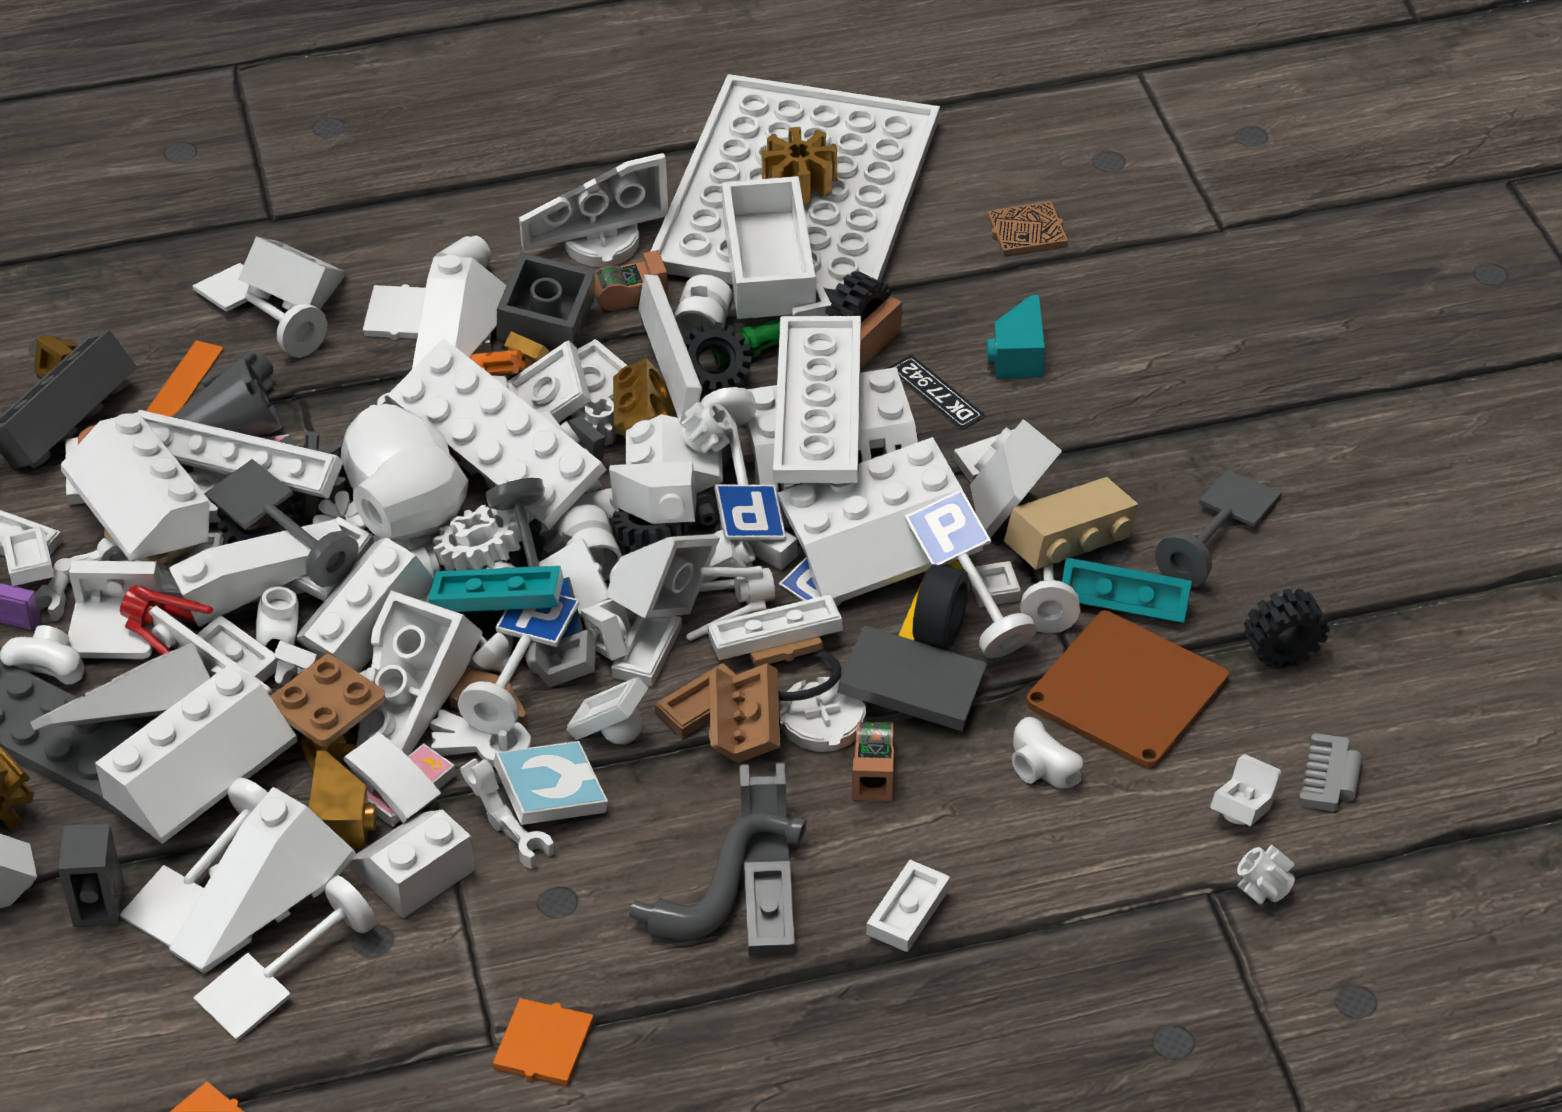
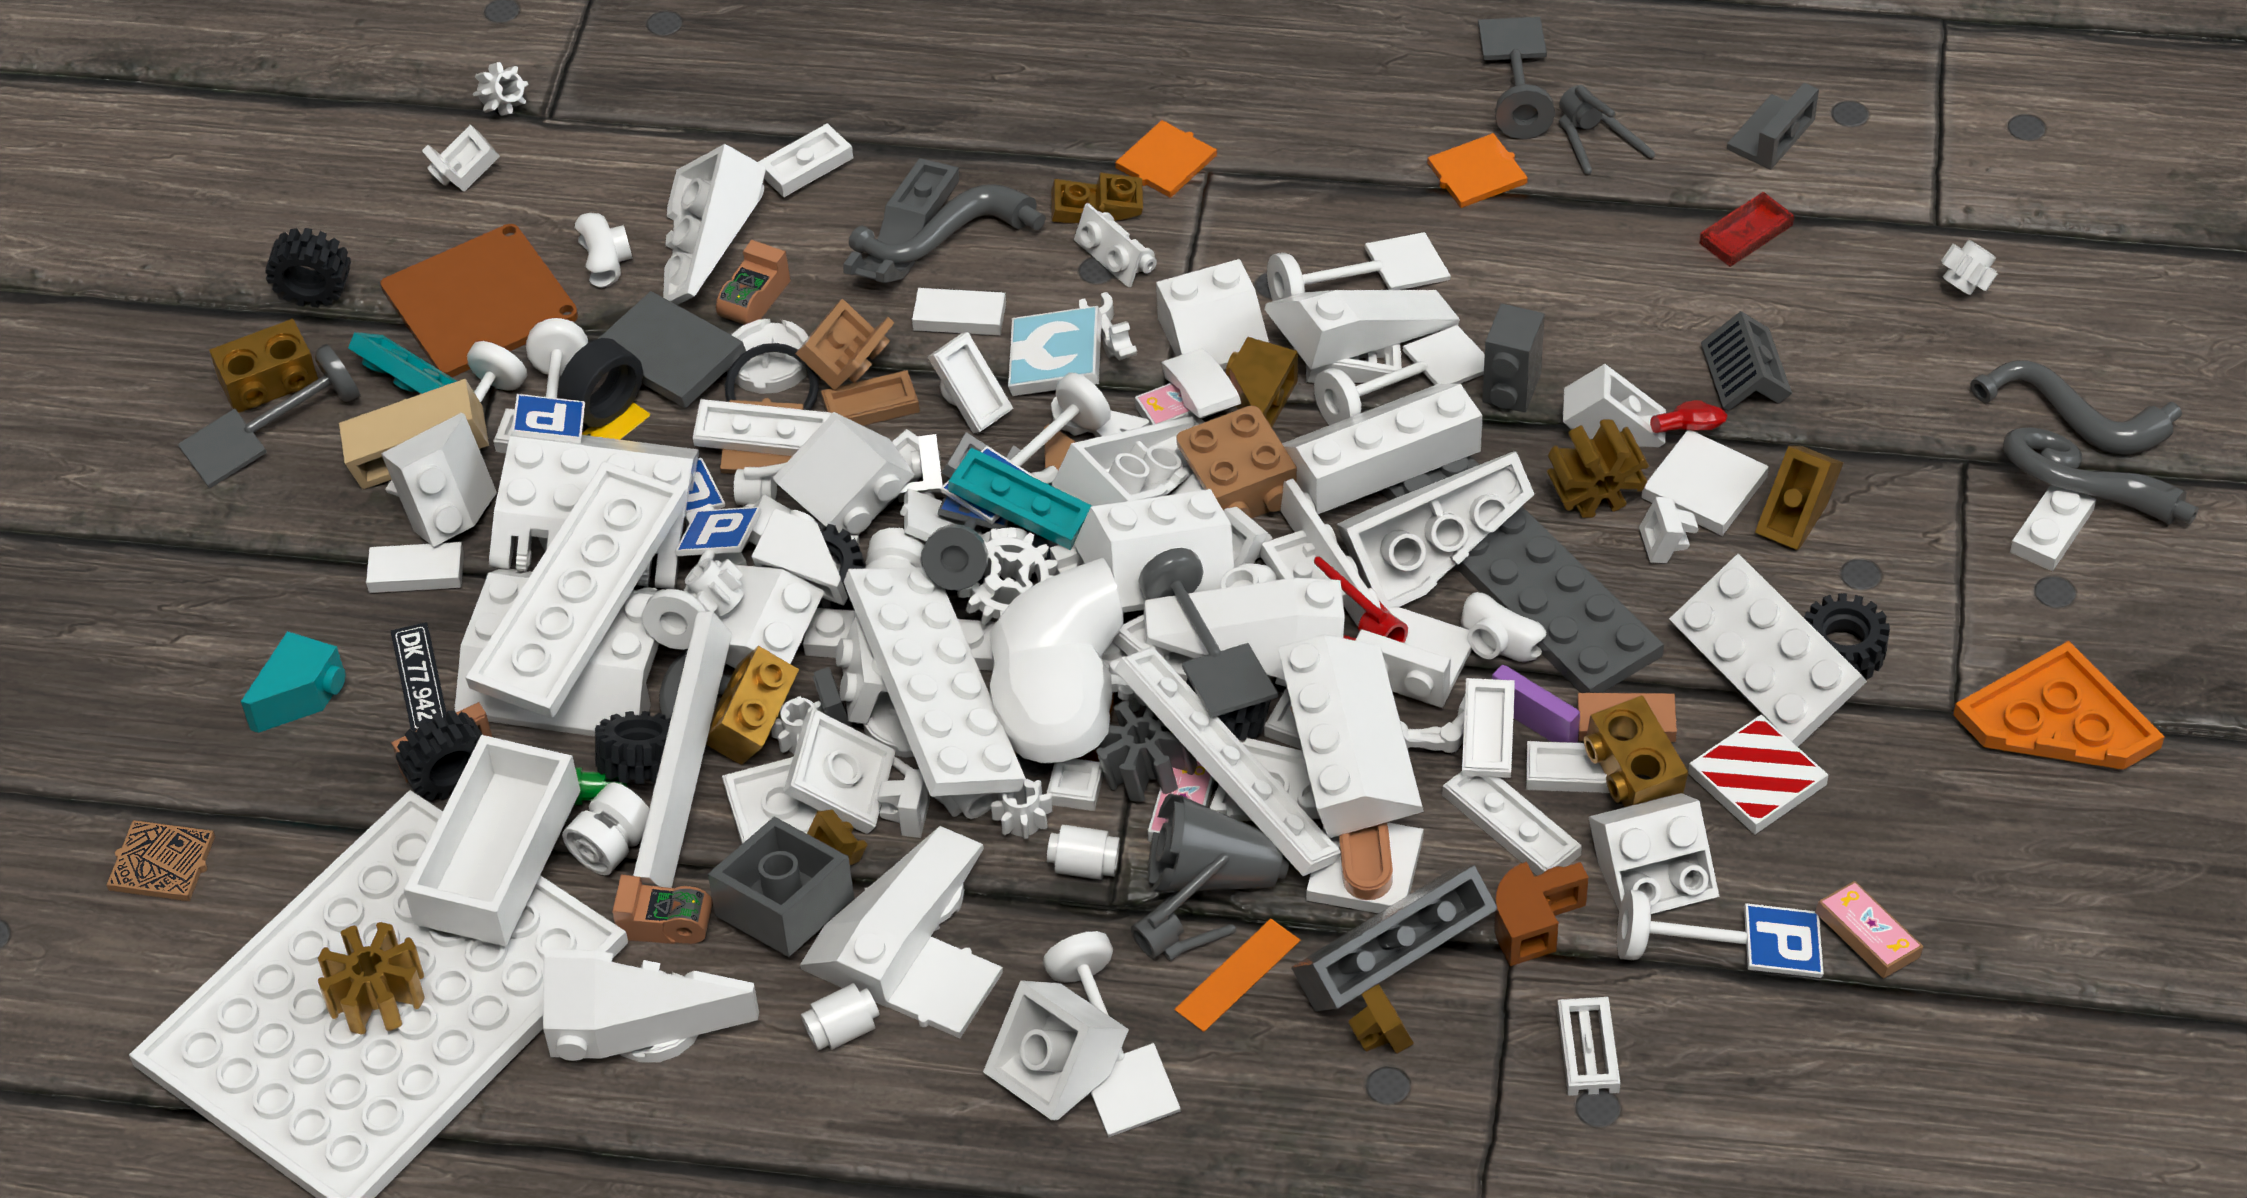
camera: 155 degrees left, 5 degrees up
(331, 403) = (1083, 852): none -> white brick
(500, 362) = (874, 836): orange piece -> none
(562, 917) = (1112, 246): none -> white hinge
(580, 968) = (1112, 194): none -> pearl gold slope
(667, 806) = (959, 311): none -> white tile
(958, 809) = (708, 209): none -> white wedge
(1256, 554) = (264, 366): none -> pearl gold brick
(1330, 773) = (365, 168): light grey piece -> none

